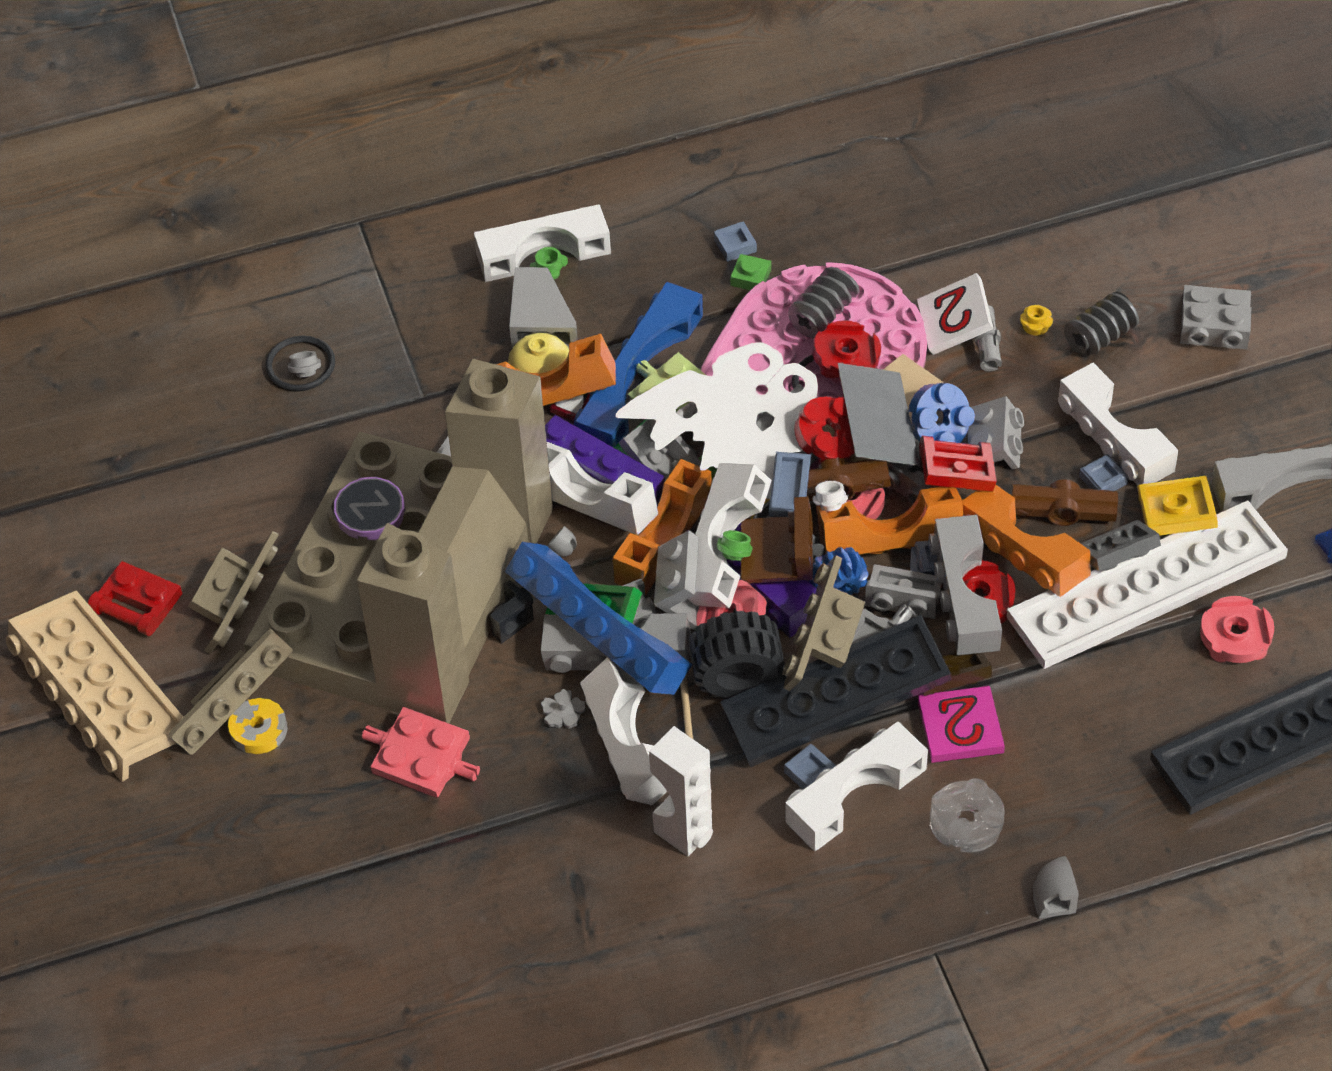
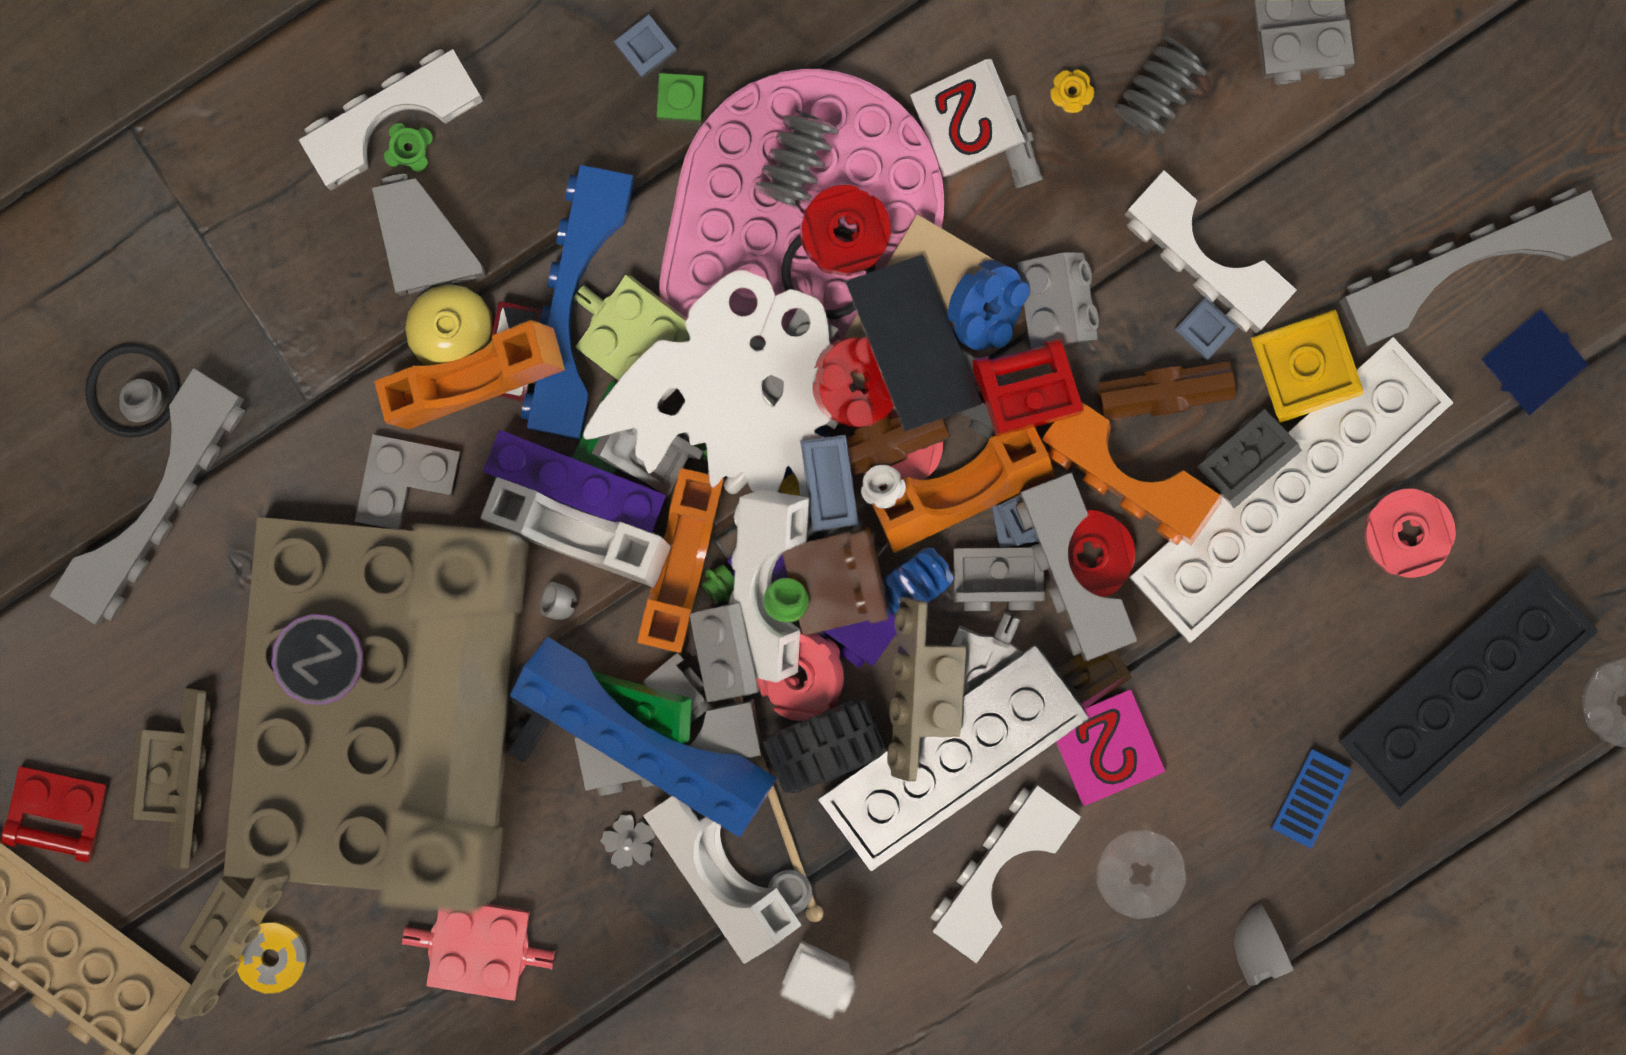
camera: 20 degrees left, 35 degrees up
(234, 456) = (198, 420): none -> light grey arch
(807, 766) = (944, 854): sand blue tile -> none
(1119, 793) = (1311, 798): none -> tile

